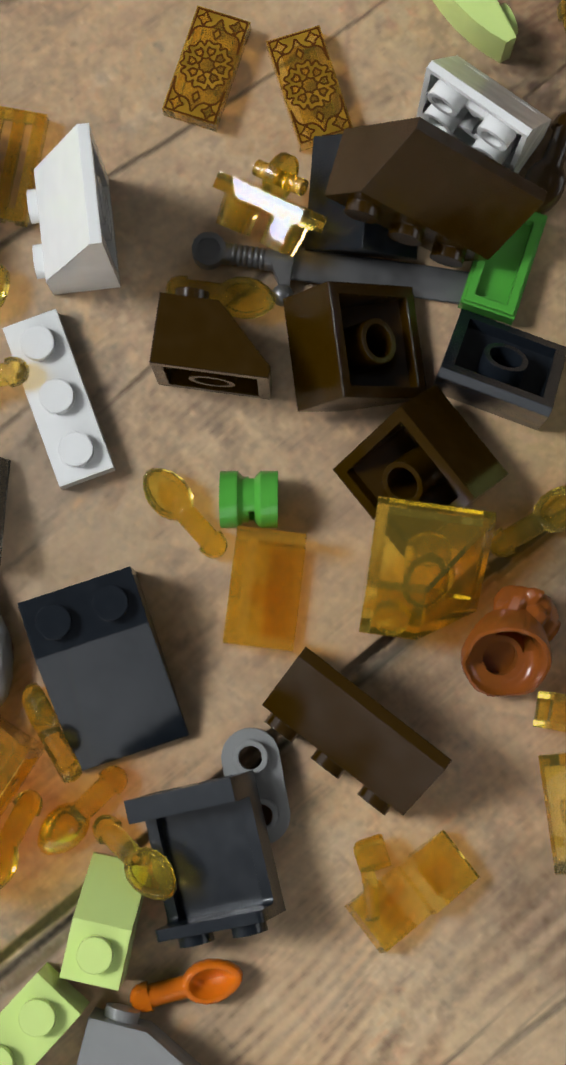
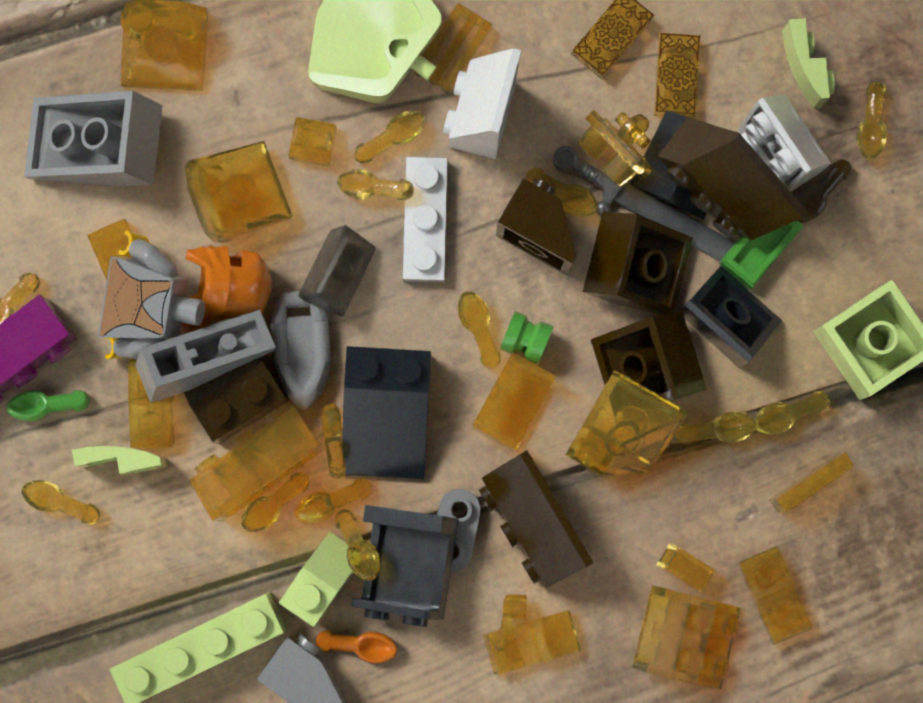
camera: 15 degrees right, 0 degrees up
(510, 645) = (663, 503): dark orange hair -> none

